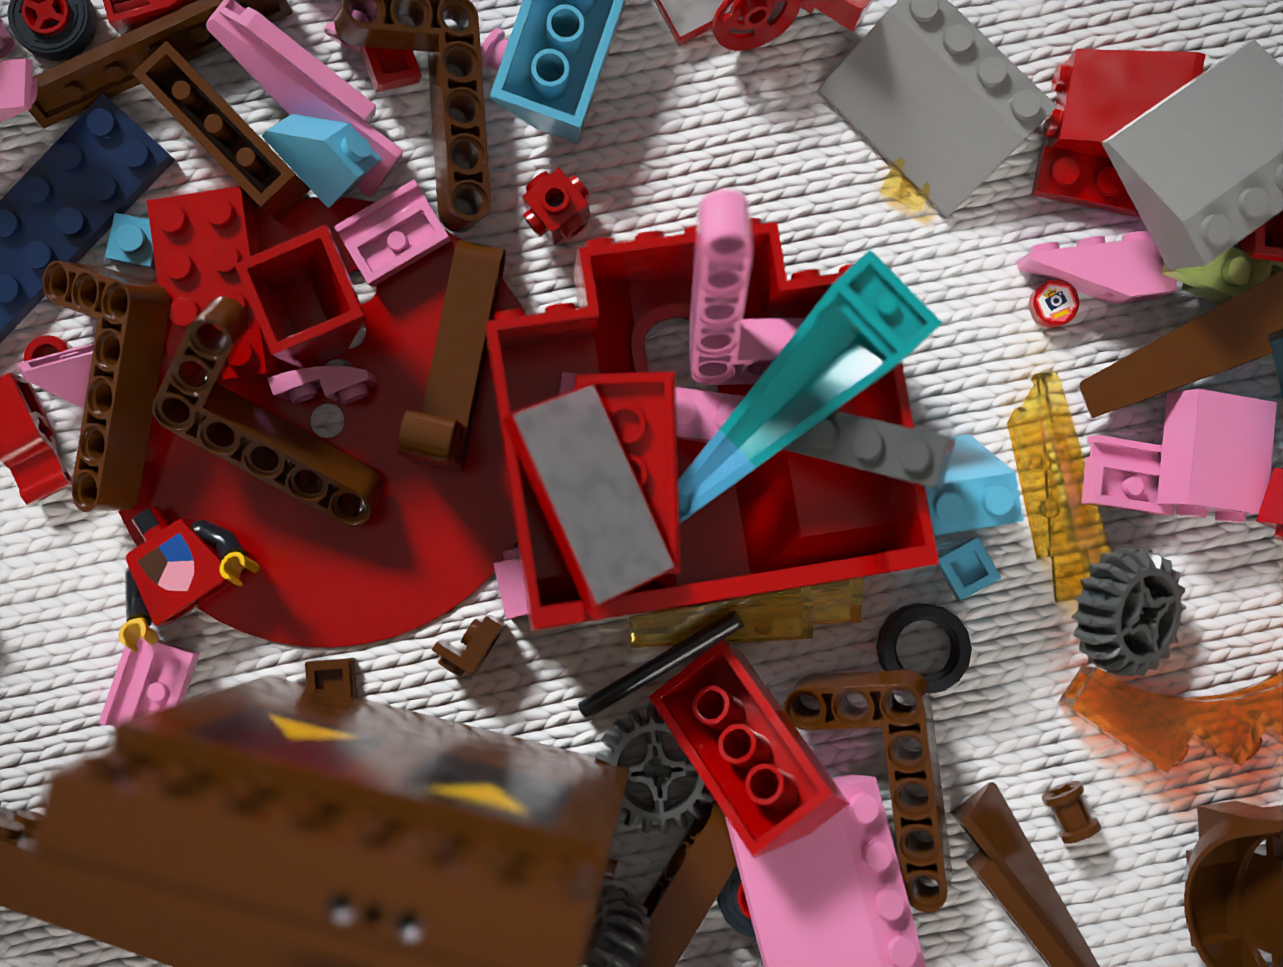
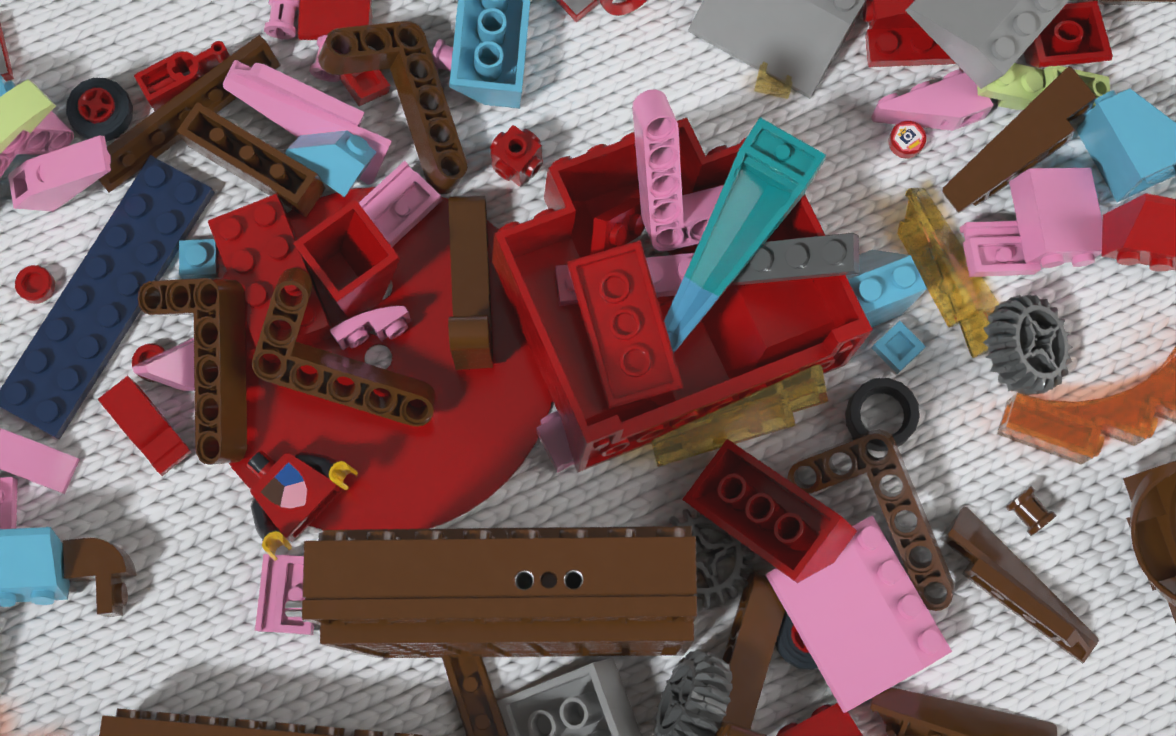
camera: 10 degrees left, 10 degrees down
(478, 638) = (539, 492): reddish brown bracket -> none
(589, 494) = (602, 340): flat silver tile -> none
(653, 339) = (617, 226): none -> red plate
(661, 664) = (686, 472): black bar -> none

